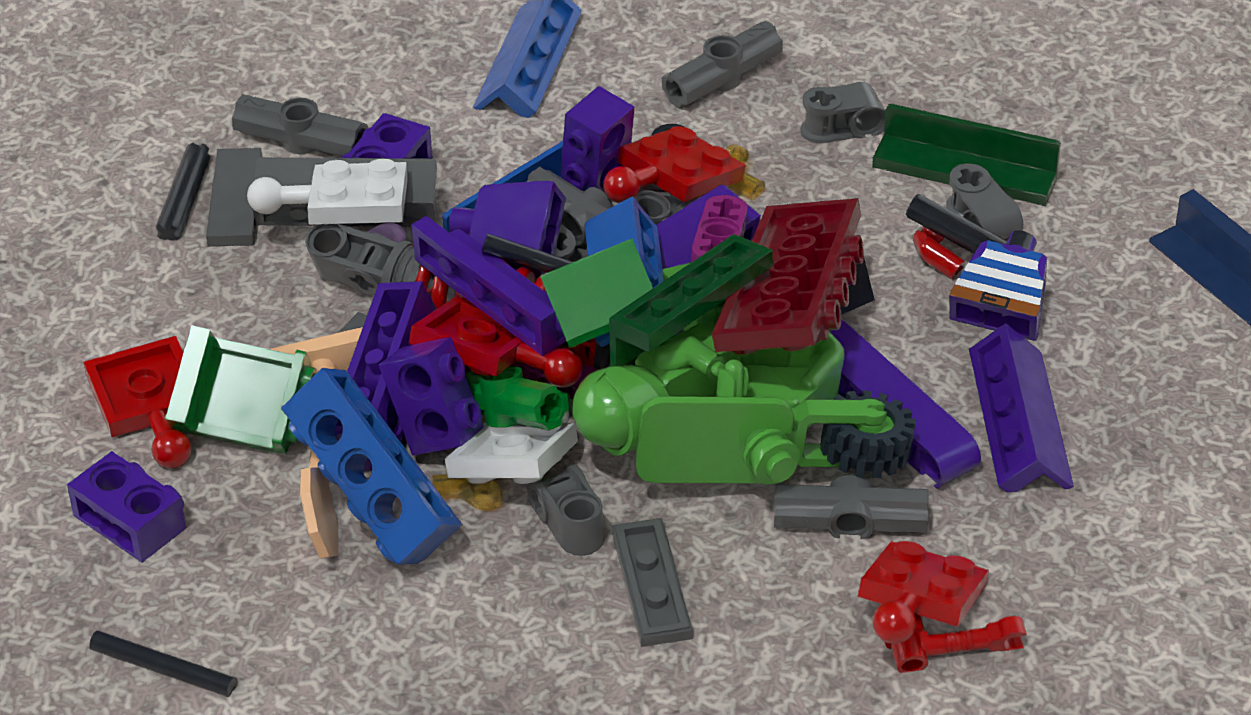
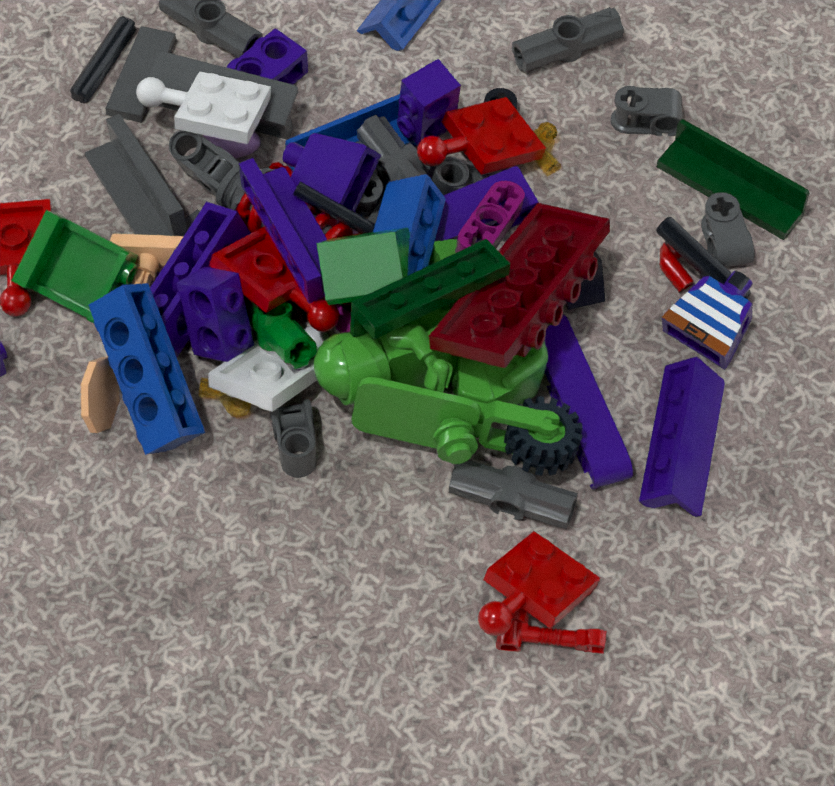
camera: 15 degrees right, 15 degrees up
(274, 295) = (136, 184): none -> dark grey panel
(651, 582) = (336, 517): dark grey tile -> none

